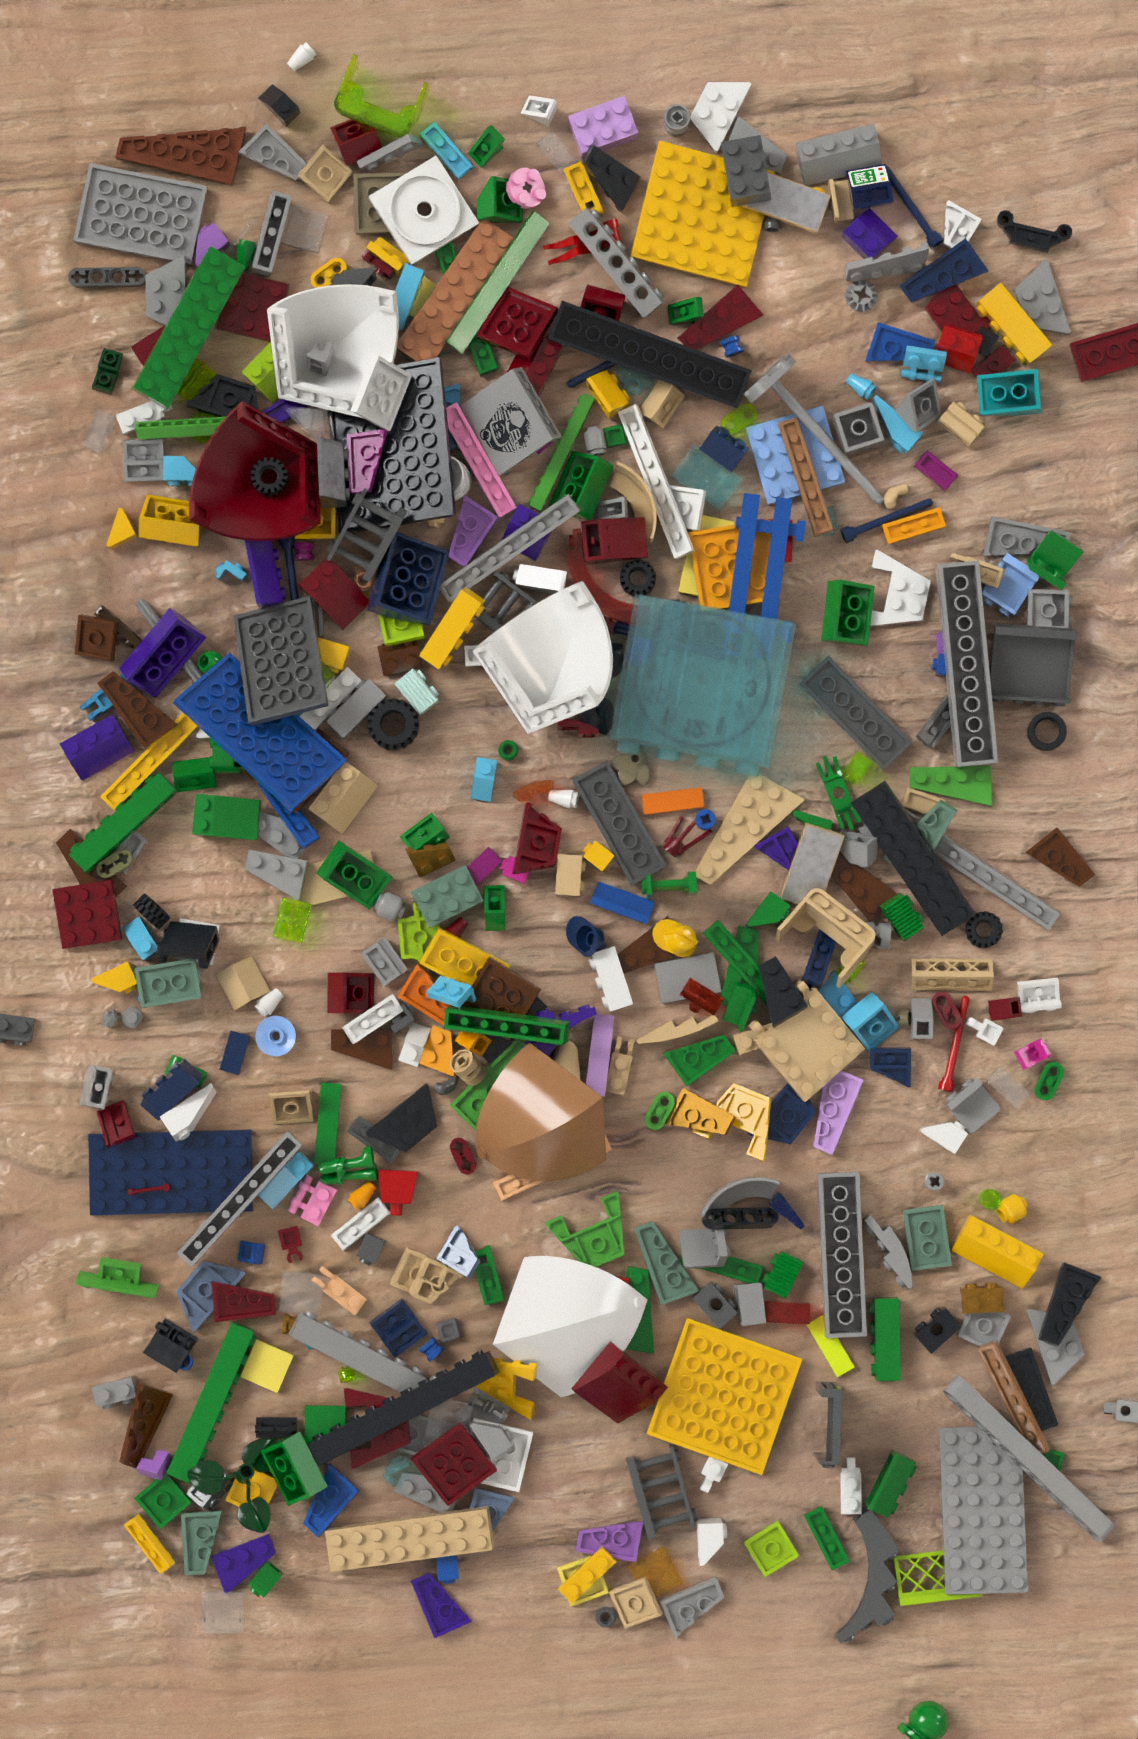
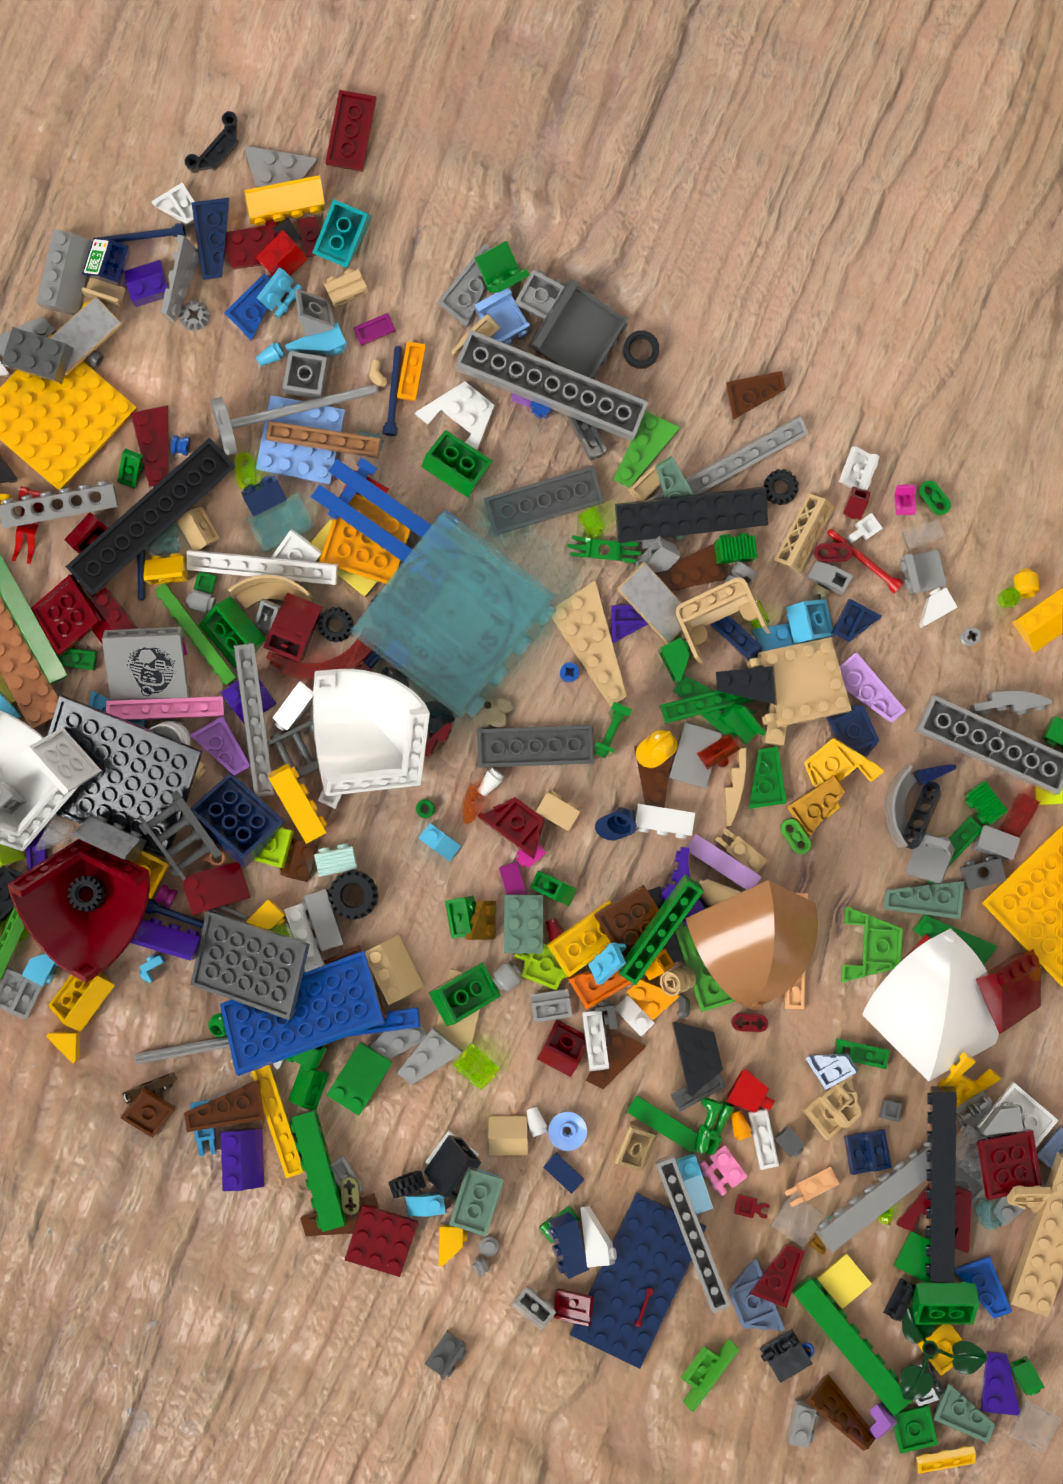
camera: 65 degrees left, 0 degrees up
(162, 653) = (190, 1062): dark purple slope -> none
(251, 1252) = (740, 1245): blue slope -> none
(364, 455) = (112, 804): wing -> none
(431, 1349) = (900, 1133): blue wheel -> none
(432, 1496) = (1030, 1197): none -> tan wing
(597, 855) = (553, 778): yellow brick -> none
(622, 902) = (603, 778): blue panel -> none
(673, 801) = (539, 691): orange tile -> none
(674, 845) = (578, 710): dark red plant -> none
(811, 819) = (611, 587): green slope -> none
(927, 1237) = (1014, 666): sand green plate -> none

